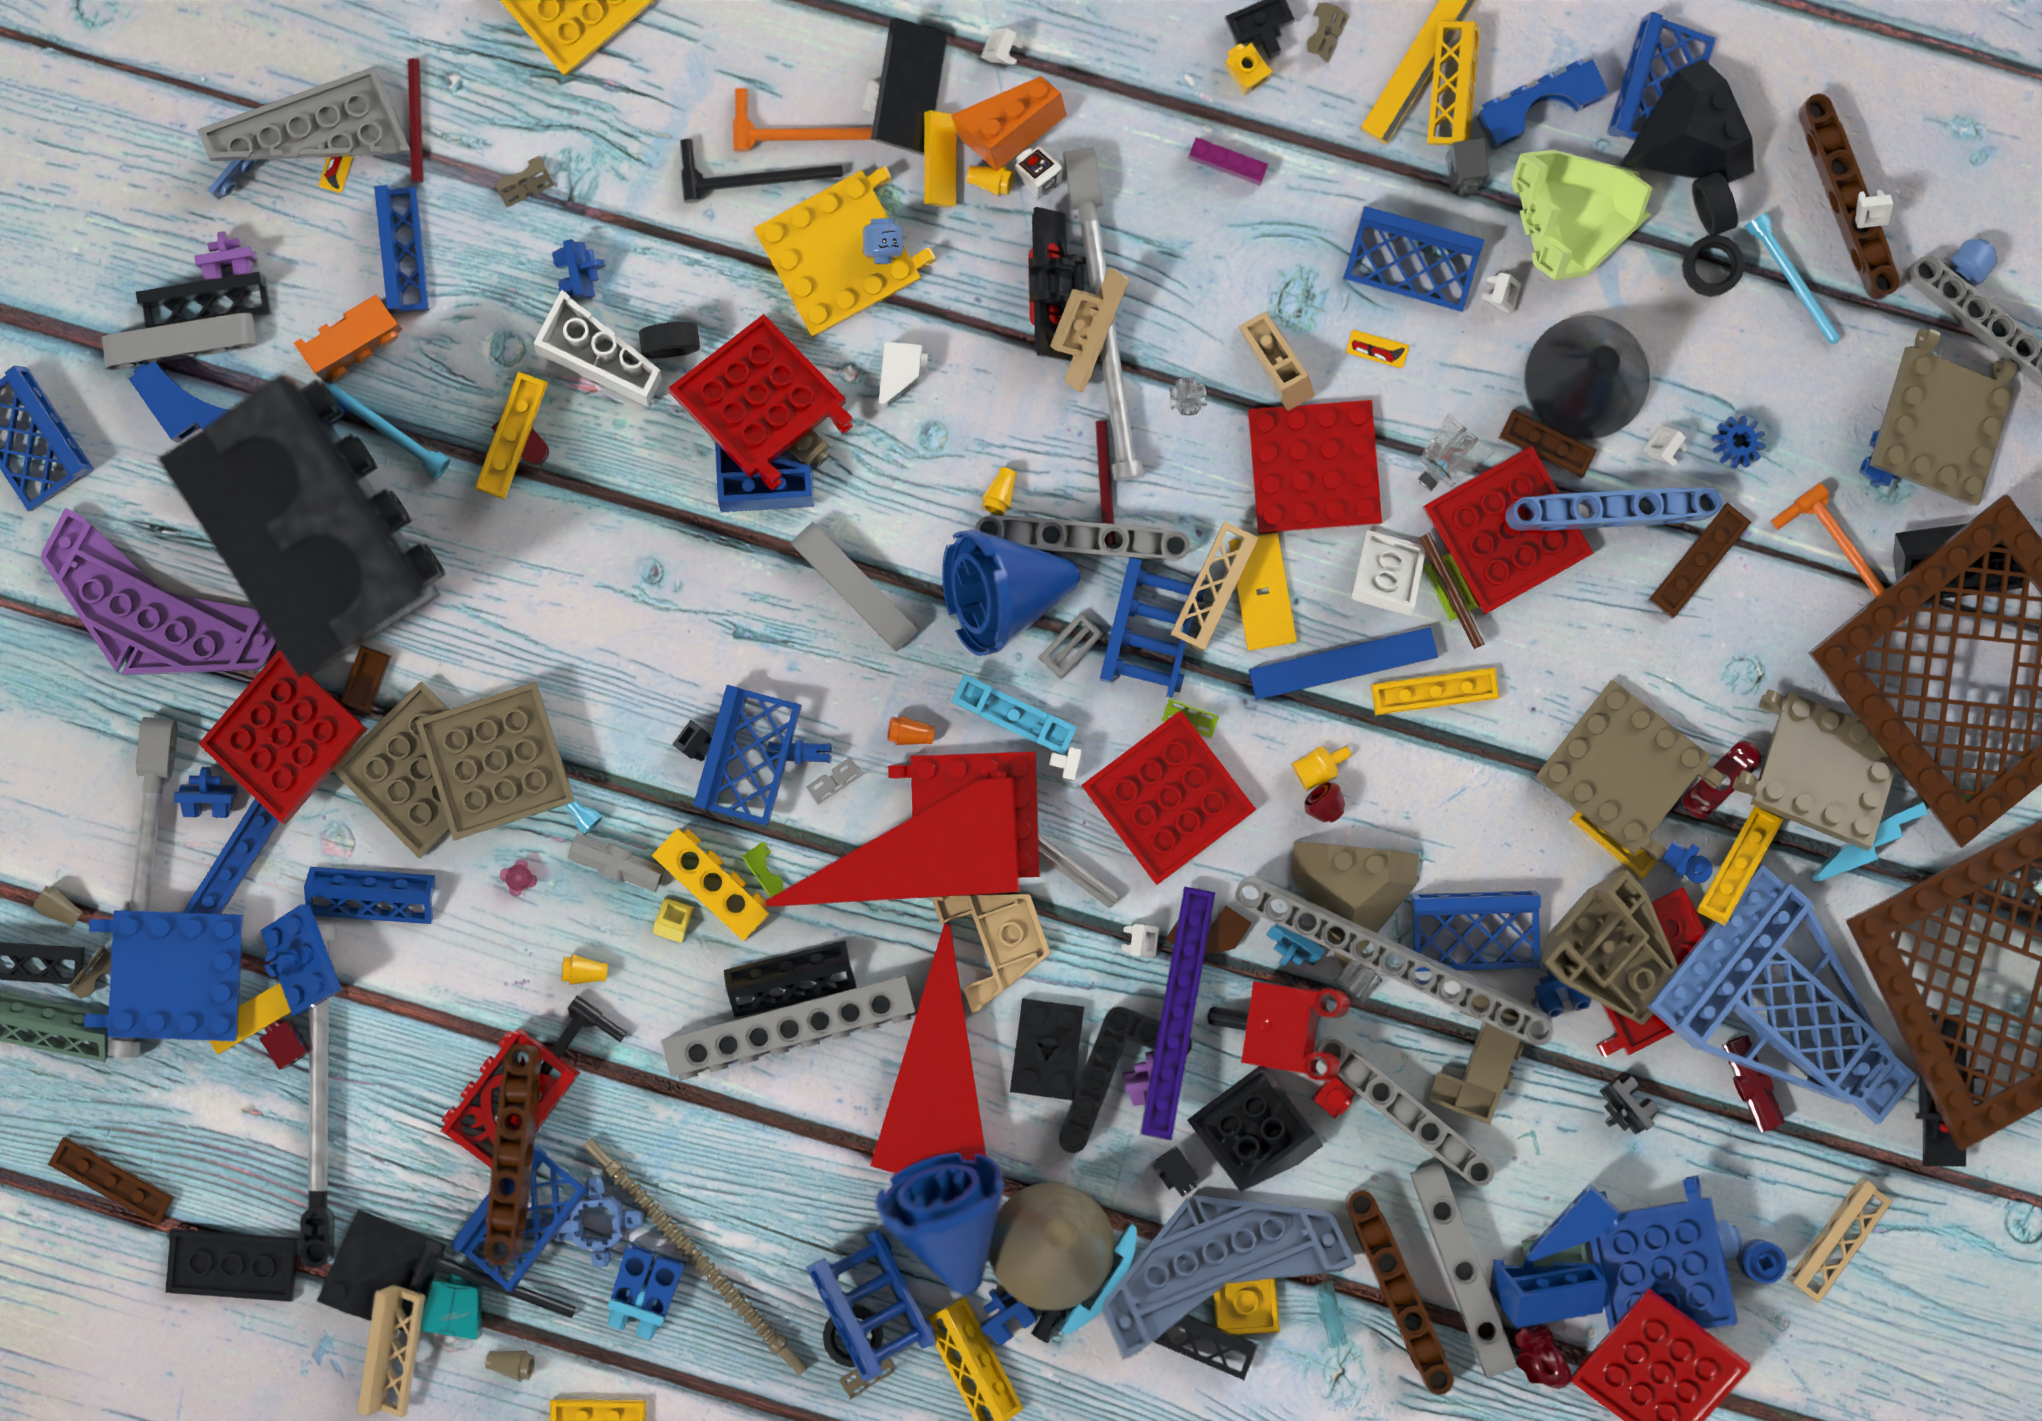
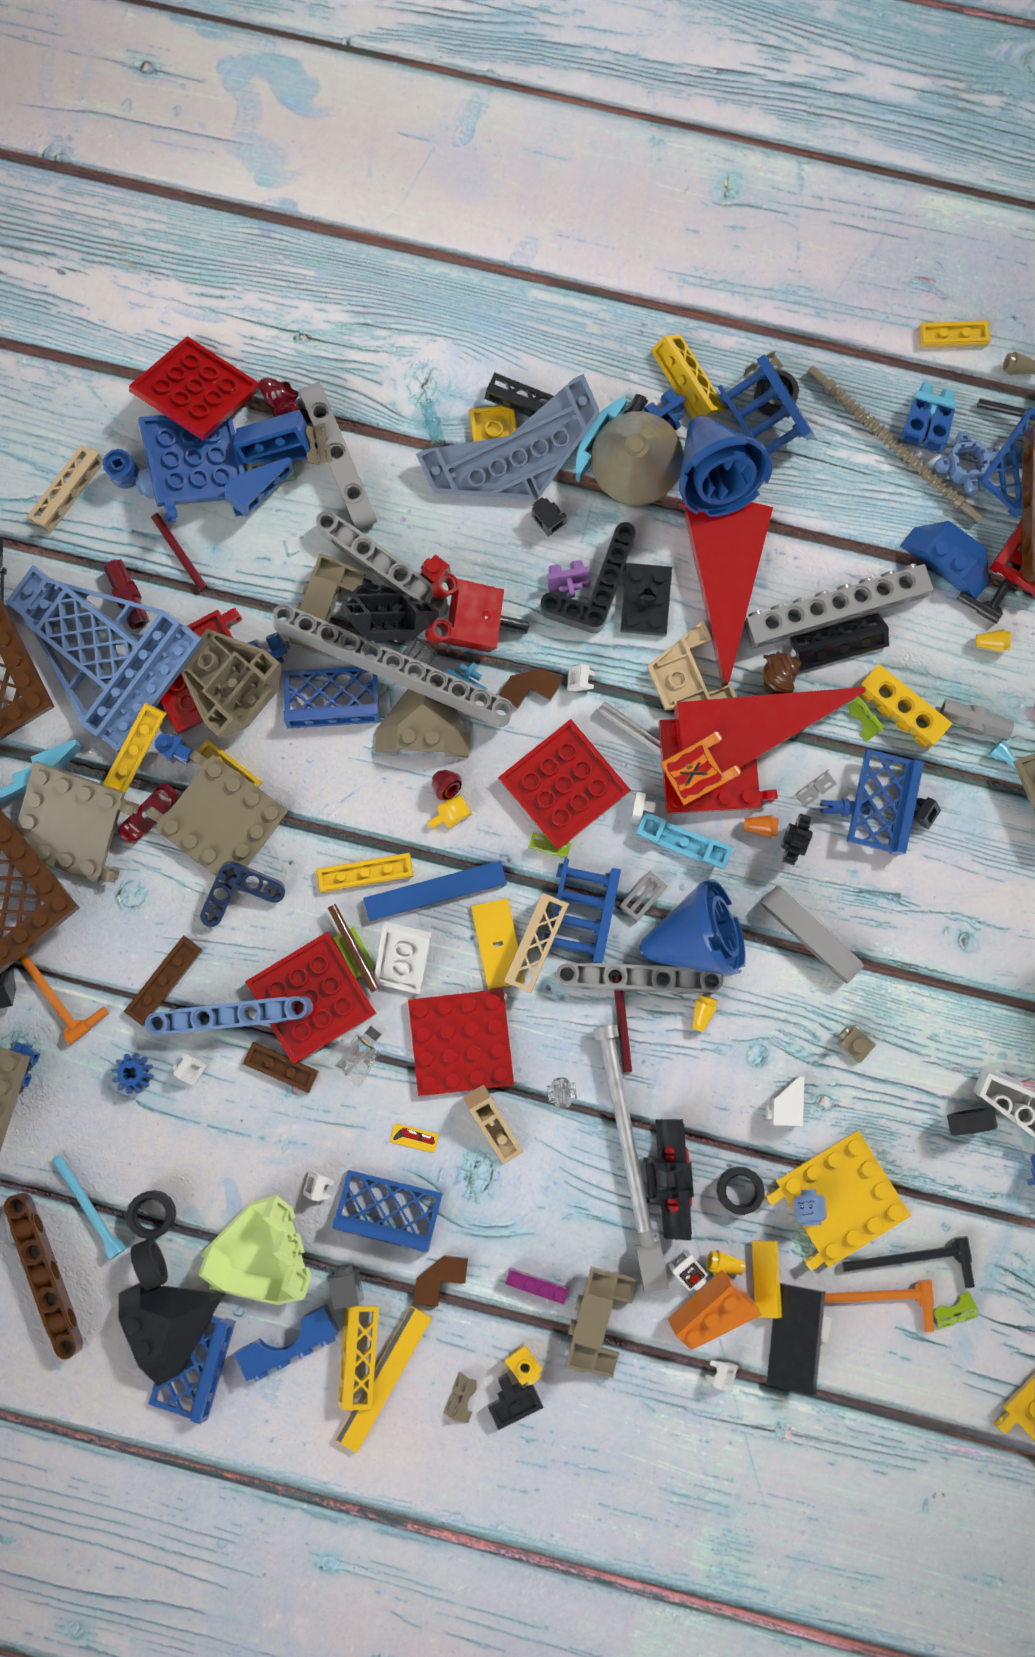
camera: 175 degrees left, 5 degrees down
(630, 1093) = (950, 555): none -> blue wedge
(673, 920) = (929, 681): light yellow slope -> none
(694, 118) = (965, 1304): none -> lime piece
(740, 493) = (892, 1011): blue wedge -> none
(759, 398) = (898, 1077): red plate -> none
(868, 708) = (796, 839): none -> black gear
(874, 933) = (780, 673): none -> reddish brown hair
(977, 246) = (758, 1185): none -> black tyre
(999, 796) = (695, 771): none -> flag
(1086, 326) = (645, 1144): tan bracket -> none
(1158, 128) = (592, 1320): none -> dark tan bracket
(1177, 1013) = (552, 623): dark purple tile -> none
(1255, 1130) = (491, 544): black slope -> none
(1341, 185) = (445, 1269): none -> reddish brown tile
(1399, 1292) = (383, 439): reddish brown beam -> none
(1401, 1033) = (387, 613): none -> black wedge
(1497, 1263) = (312, 455): none -> dark tan piece
(1587, 377) = (250, 1121): black cone -> none
(1601, 682) = (238, 882): none -> dark blue beam
(1625, 1109) = (221, 570): black hips -> none
(1683, 1143) = (179, 552): none -> dark red bar
(1873, 210) = (22, 1262): white tile -> none

